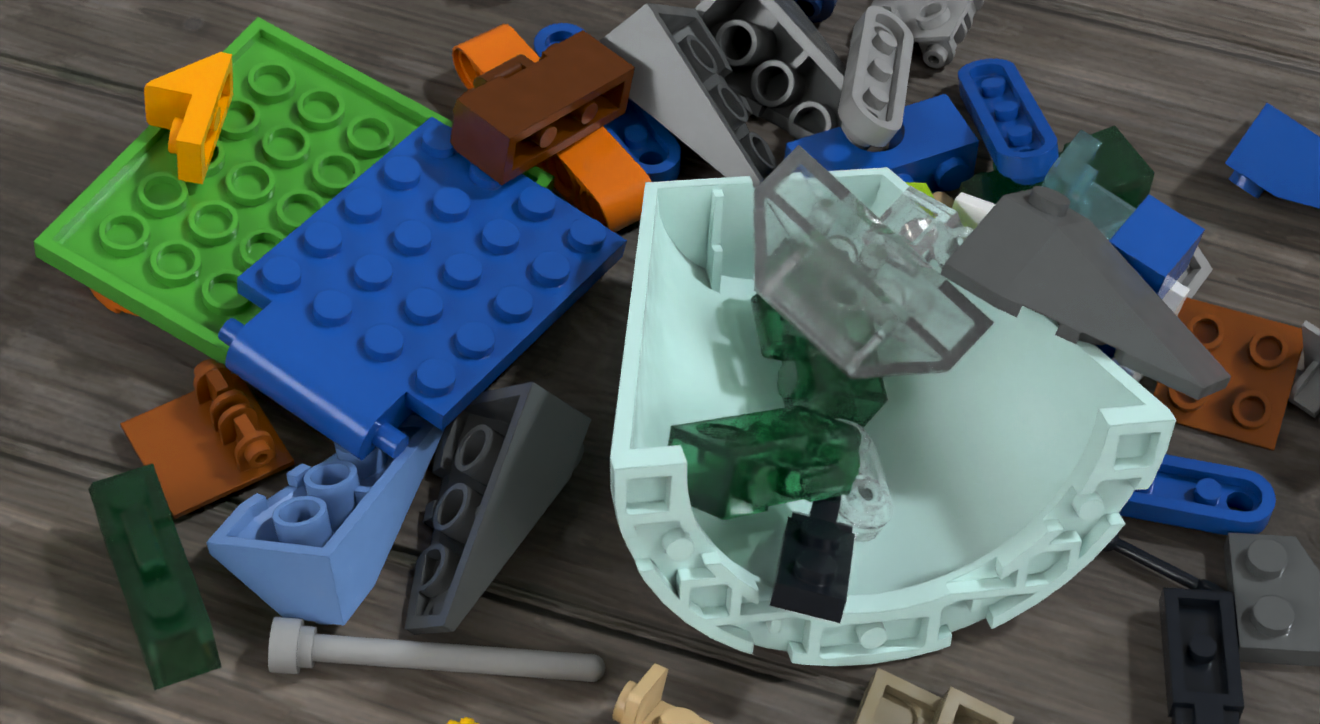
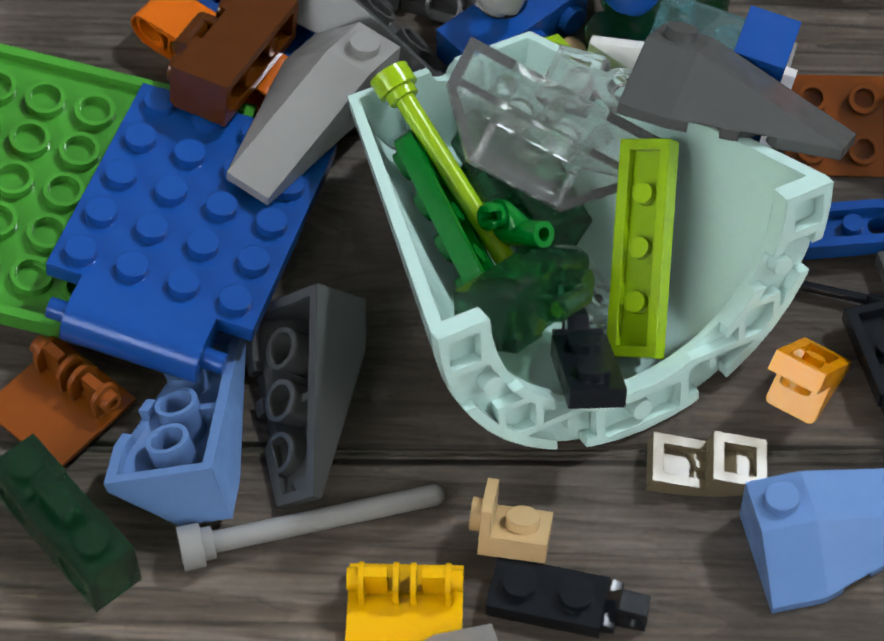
camera: 15 degrees left, 5 degrees up
(601, 190) = (308, 107): none -> light grey wedge
(702, 185) = (398, 88): none -> lime piece
(712, 331) = (455, 235): none -> green plate
(785, 378) = (513, 226): none -> green arm
(930, 445) = (642, 247): none -> lime plate
(1088, 656) = (805, 378): none -> light orange slope

